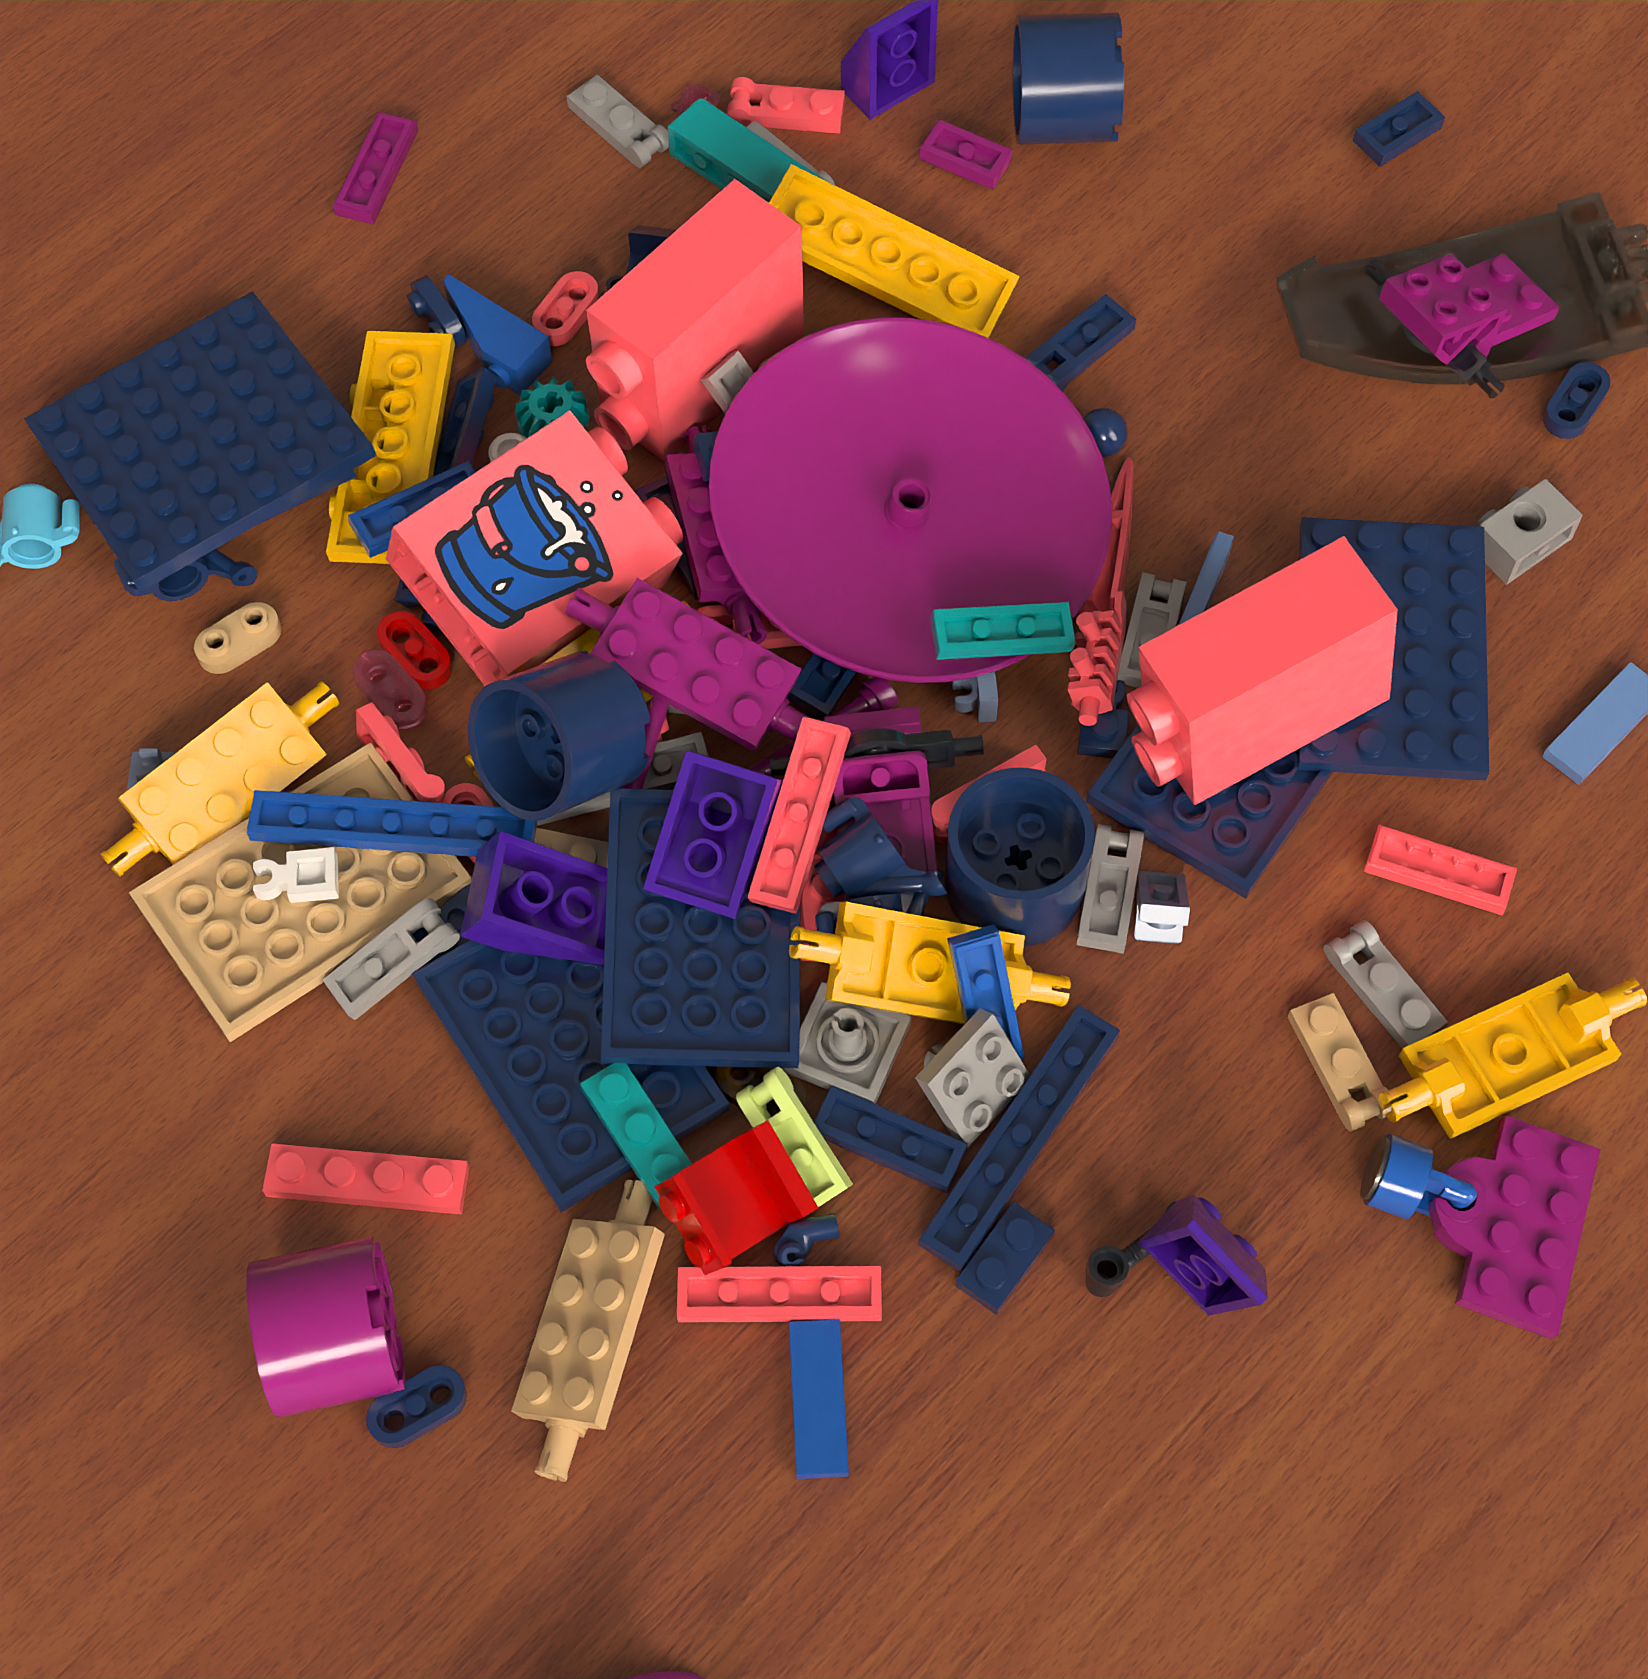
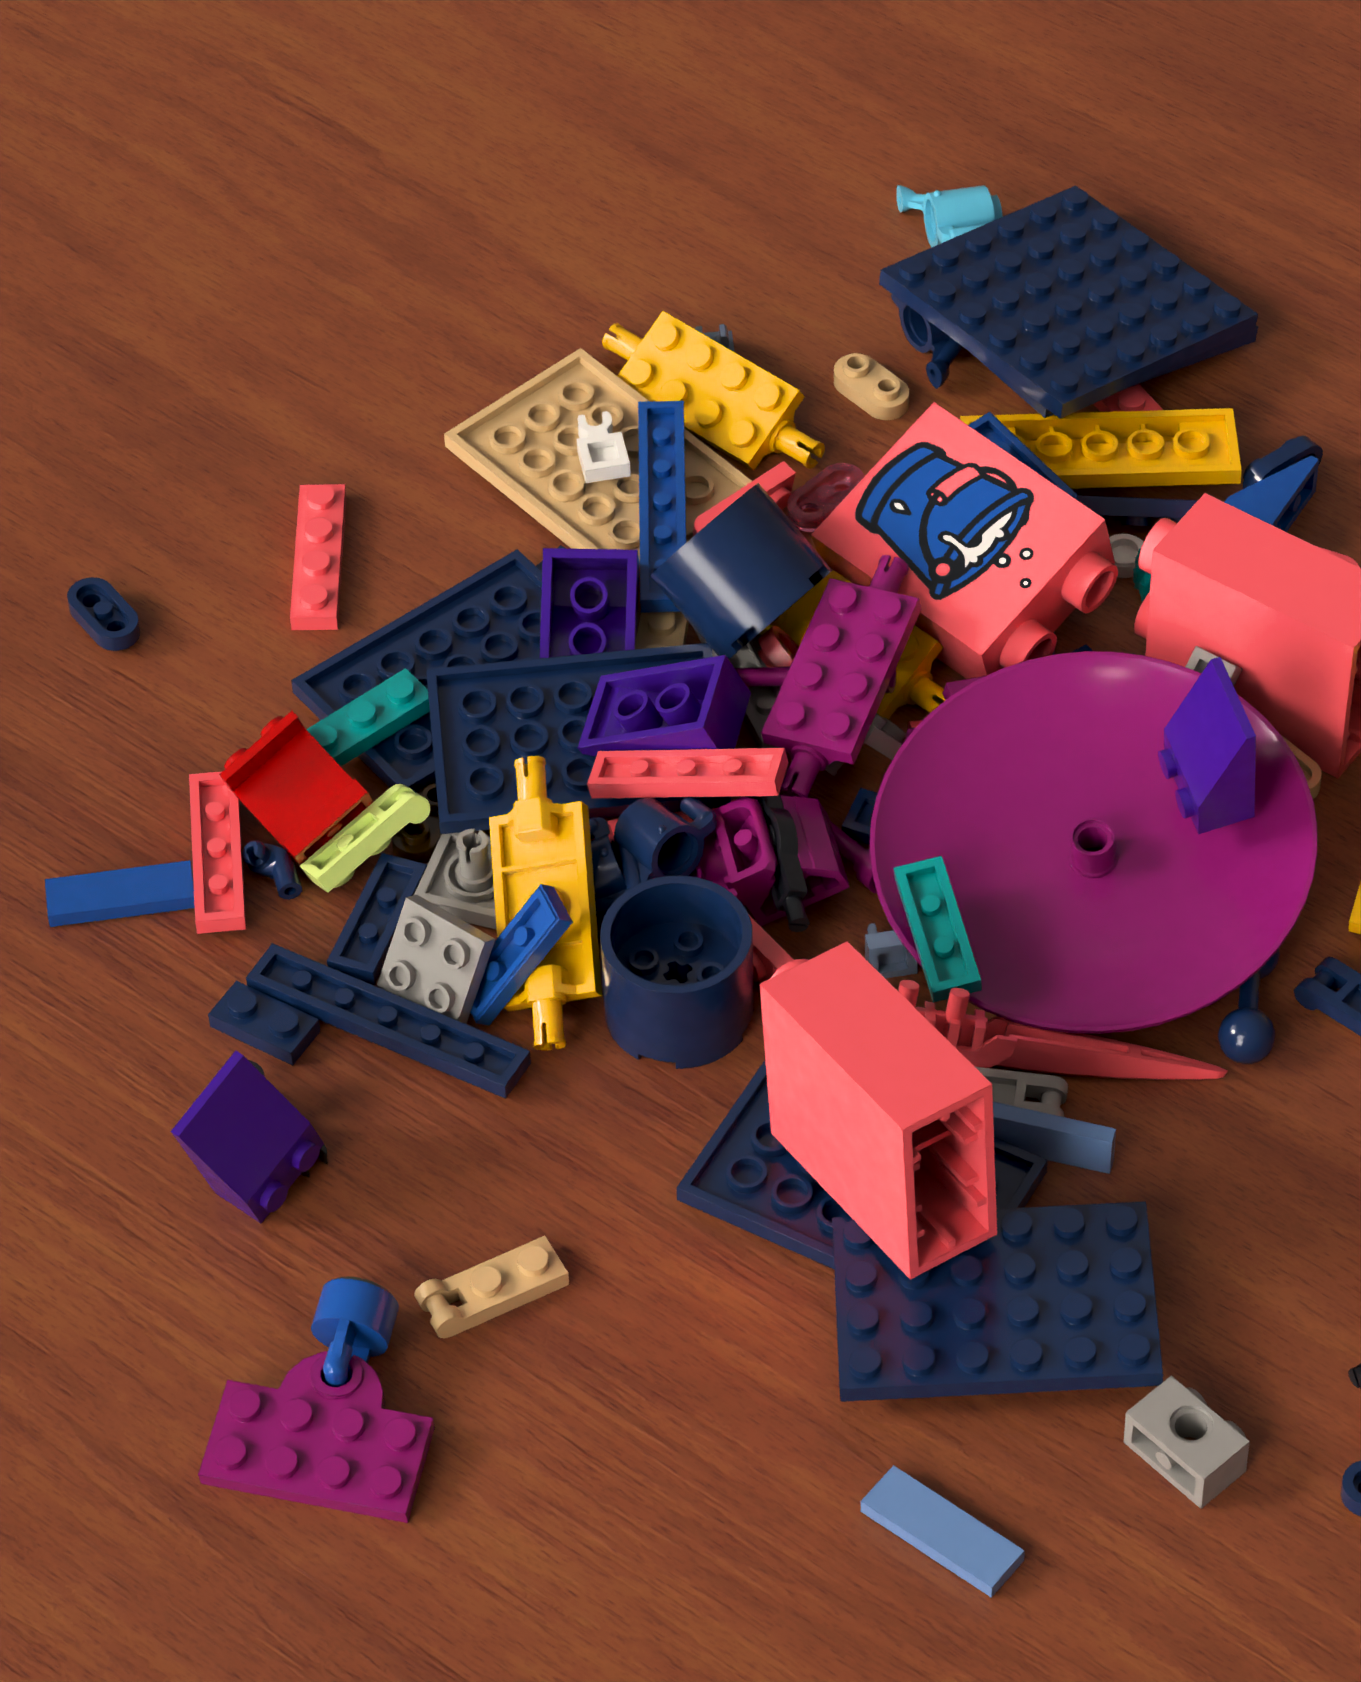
camera: 85 degrees right, 15 degrees down
(324, 1327) = (156, 517): magenta brick -> none
(390, 958) = (526, 527): light grey plate -> none
(588, 1327) = (166, 711): tan plate -> none
(884, 357) = (1211, 753): none -> dark purple slope
(1110, 890) = (672, 1076): light grey plate -> none
(1161, 907) = (654, 1115): sand blue slope -> none
(1384, 986) = (583, 1325): light grey plate -> none
(1440, 870) = (726, 1367): coral plate -> none
(1511, 1053) = (507, 1426): yellow plate -> none

